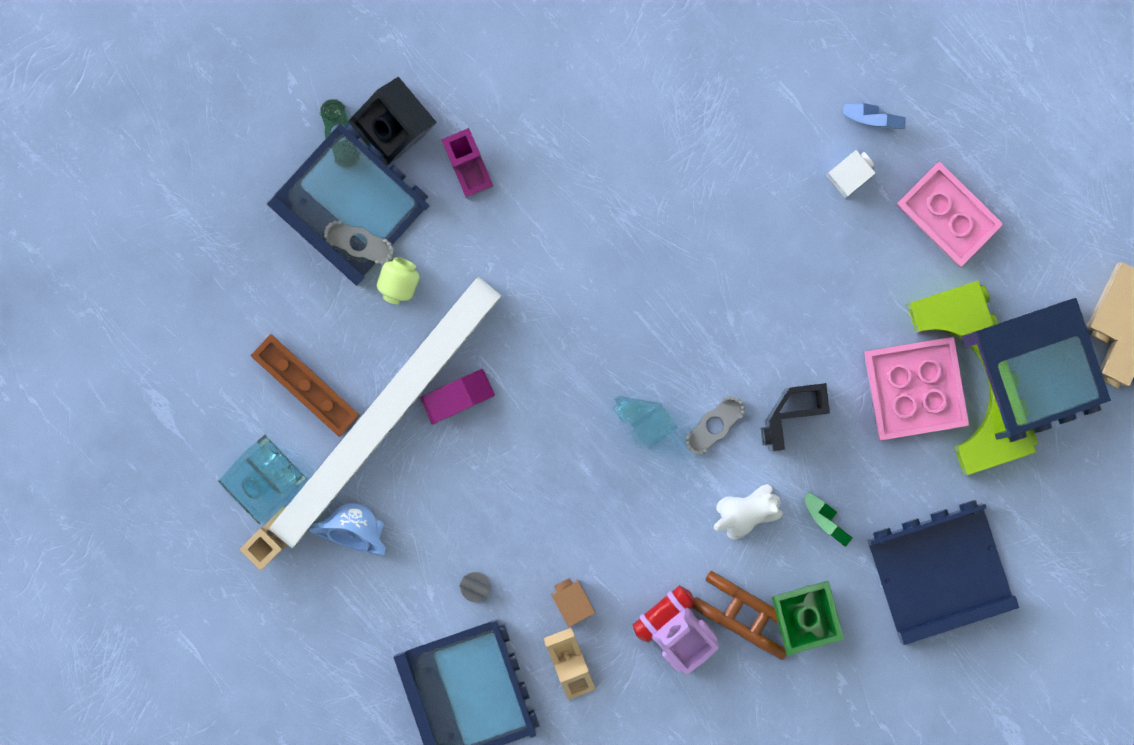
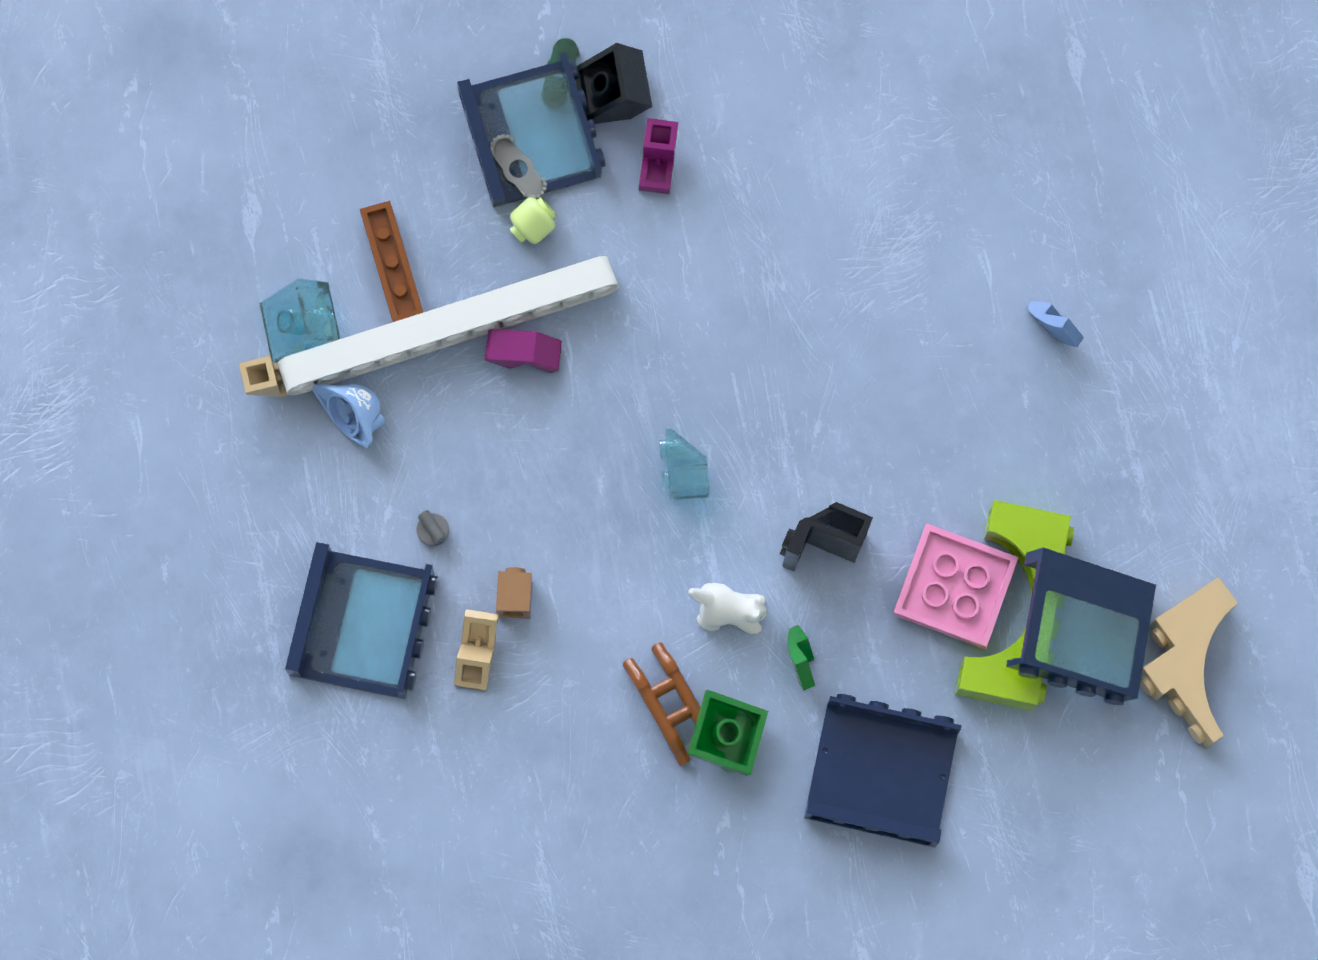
camera: 25 degrees right, 15 degrees down
(677, 631) = (596, 676): lavender piece -> none
(728, 411) = (765, 510): light grey piece -> none
(851, 173) = (1004, 359): white brick -> none
(949, 214) = (1076, 447): bright pink plate -> none

